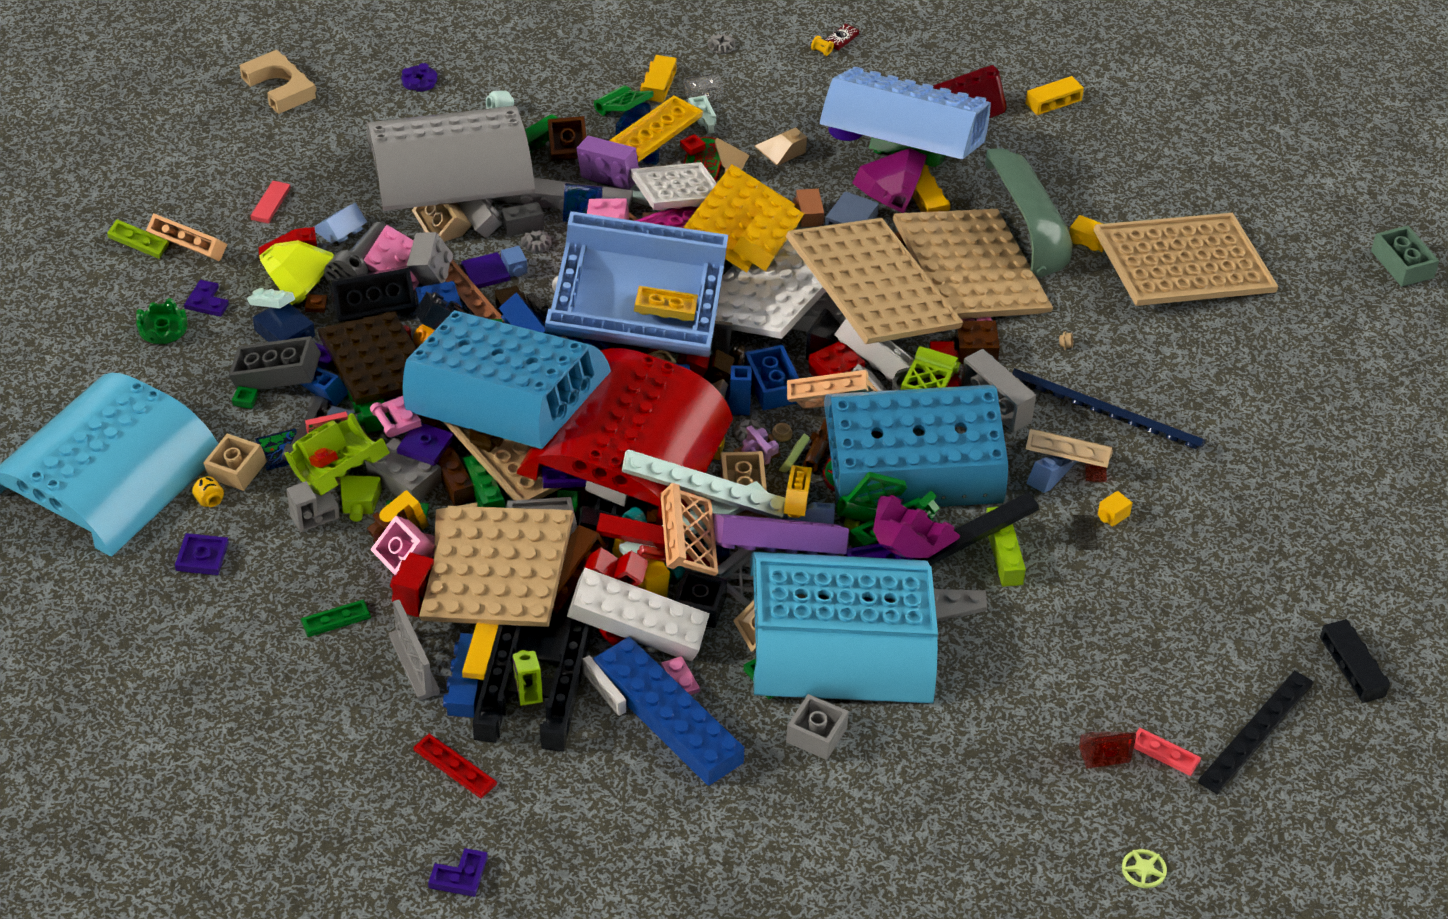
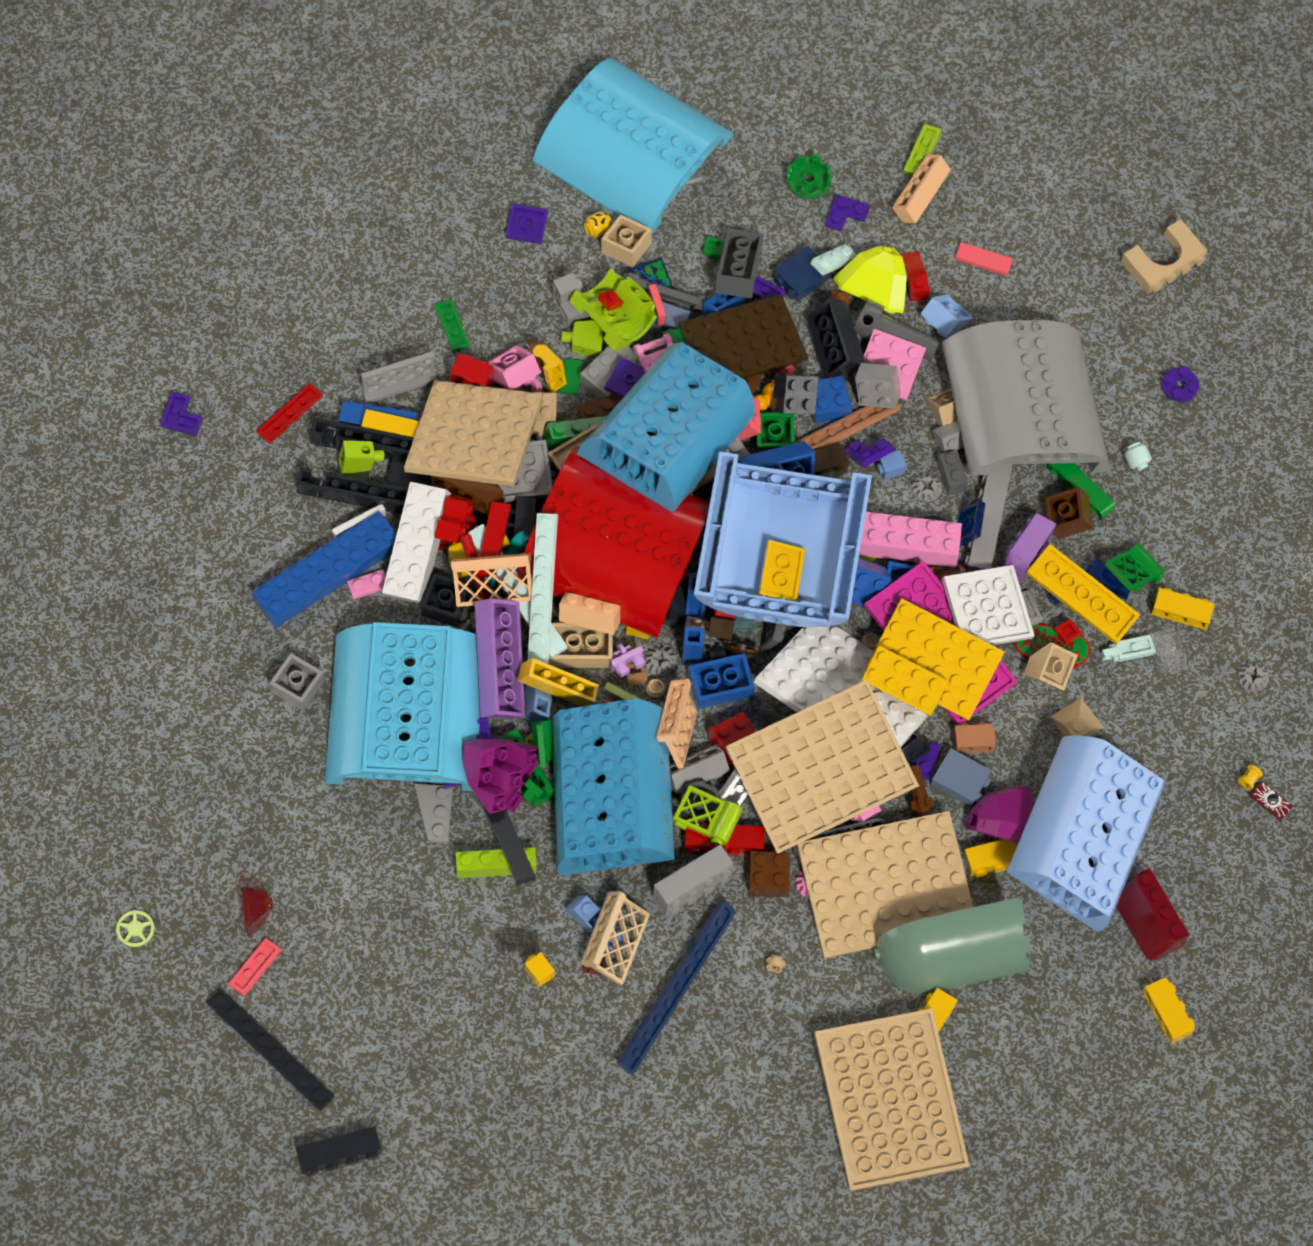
camera: 90 degrees right, 20 degrees up
(486, 270) = (888, 431): dark purple tile -> none
(506, 272) = (866, 455): none -> dark purple plate
(718, 454) = (589, 613): none -> light nougat brick

